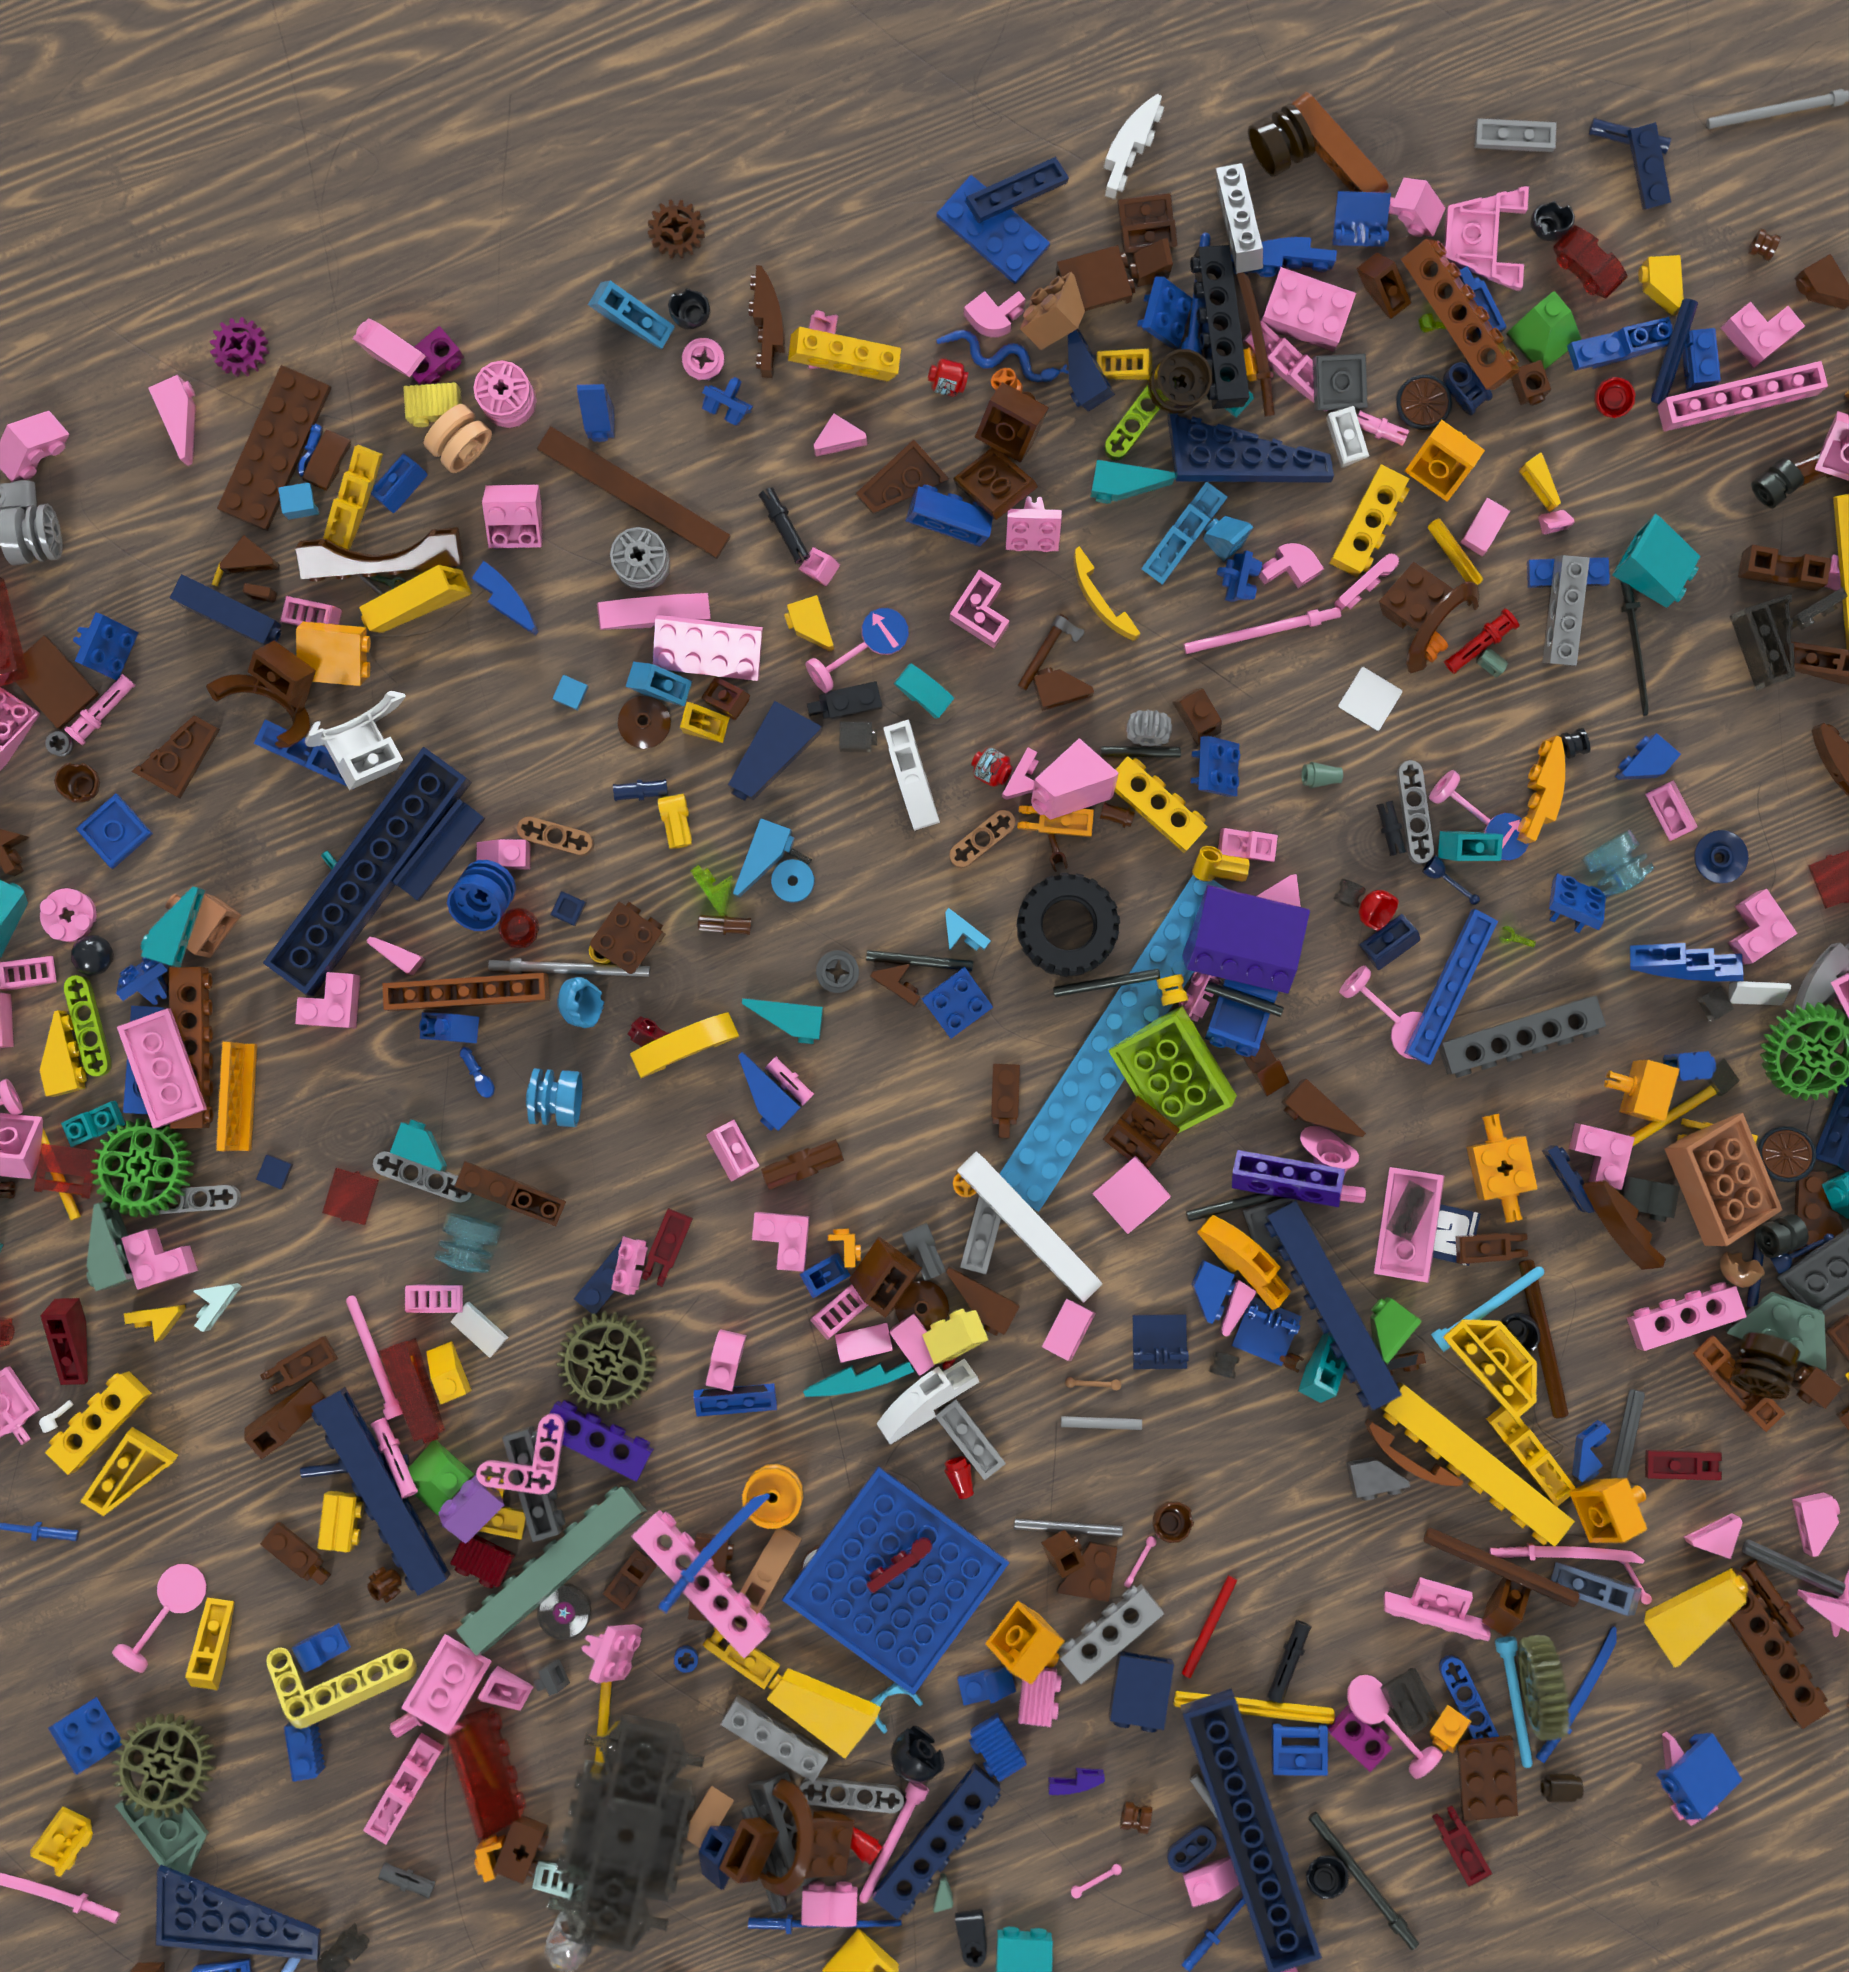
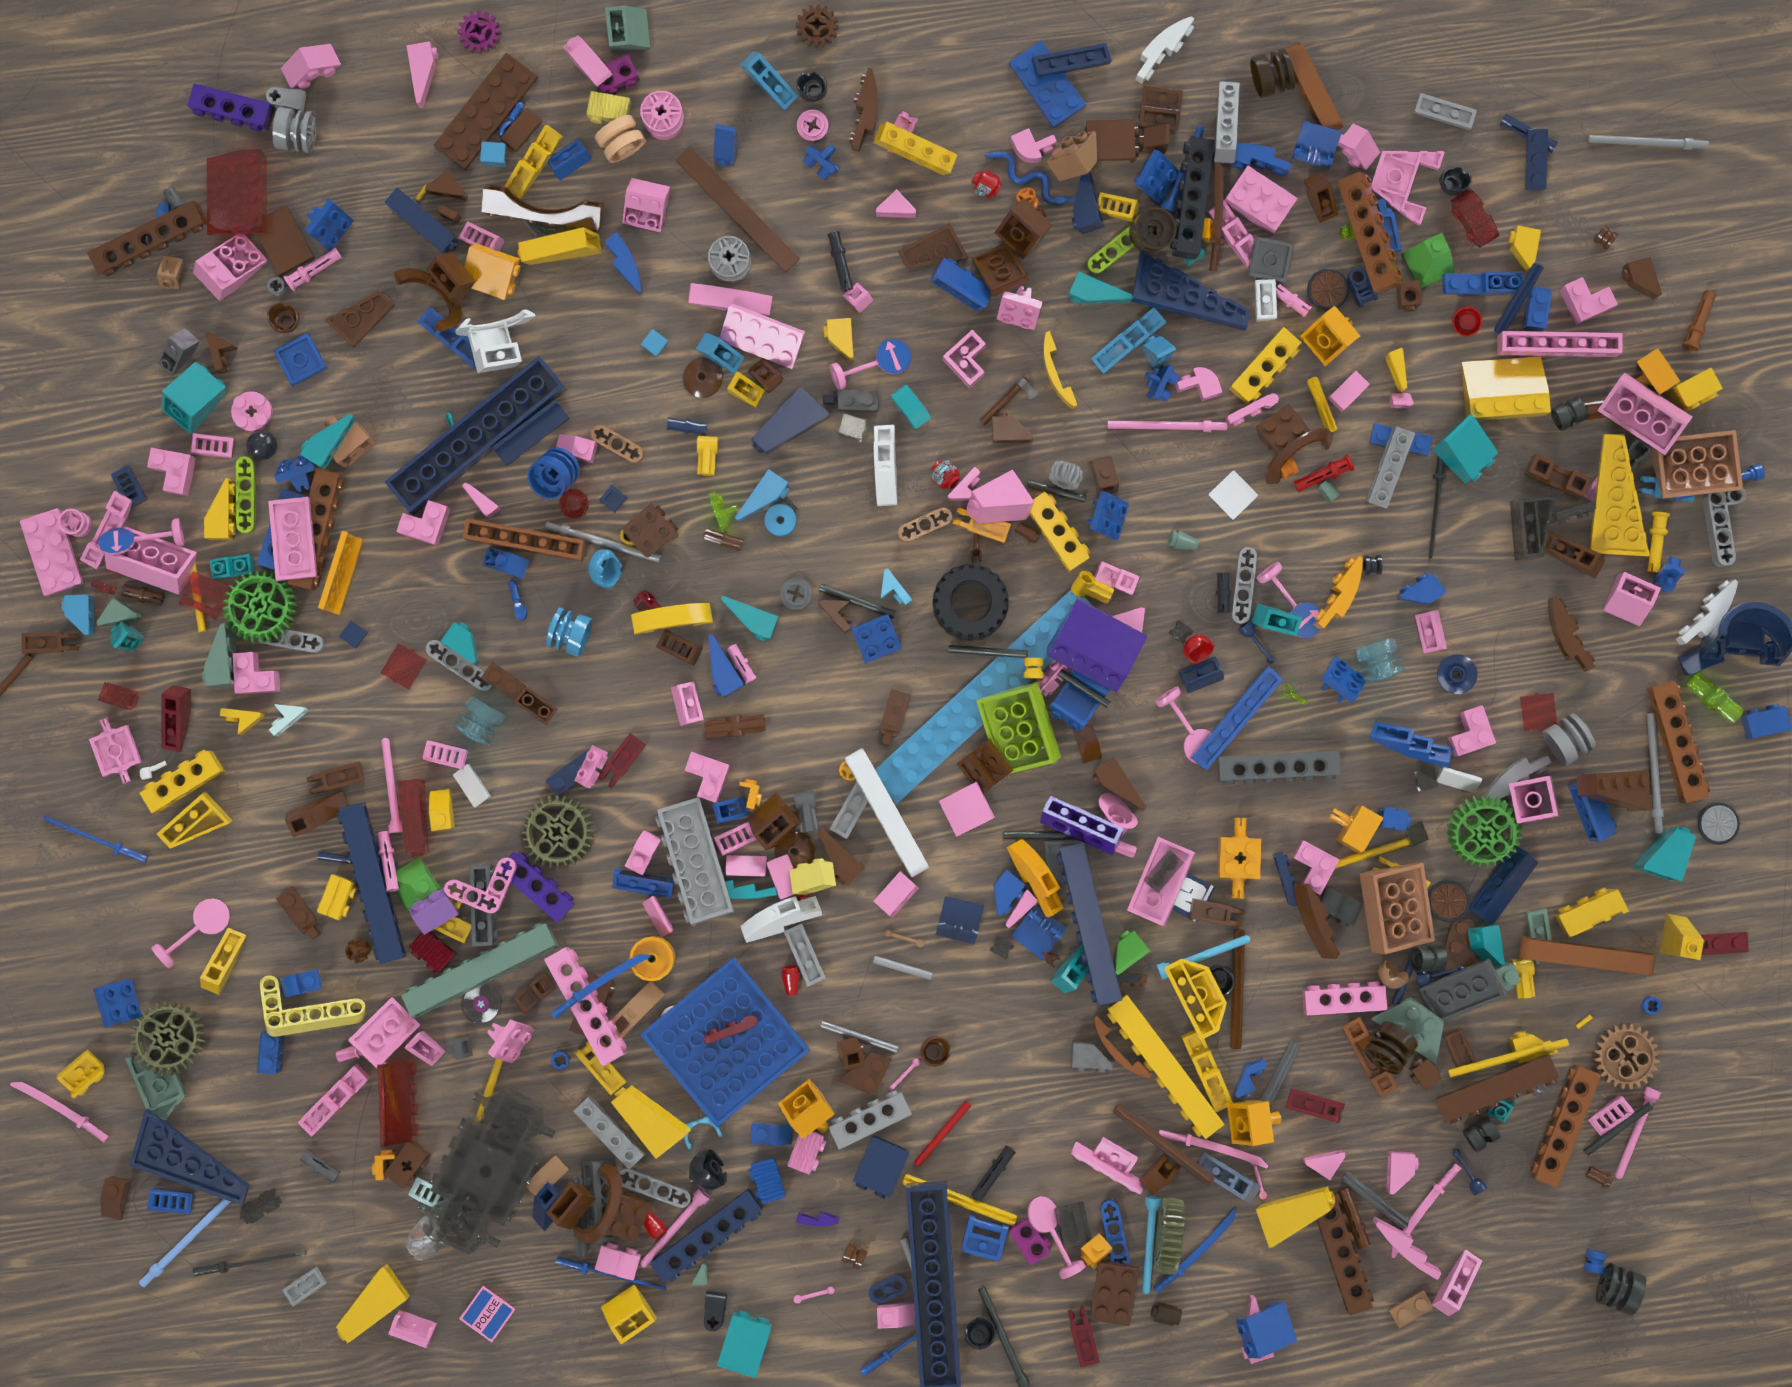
camera: 15 degrees right, 0 degrees up
(430, 294) = (627, 29): none -> sand green slope
(725, 1084) = (694, 655): none -> reddish brown slope
(766, 1438) = (658, 916): none -> bright pink slope
(795, 1356) = (694, 861): none -> light grey bracket
(1686, 472) = (1505, 388): none -> yellow slope

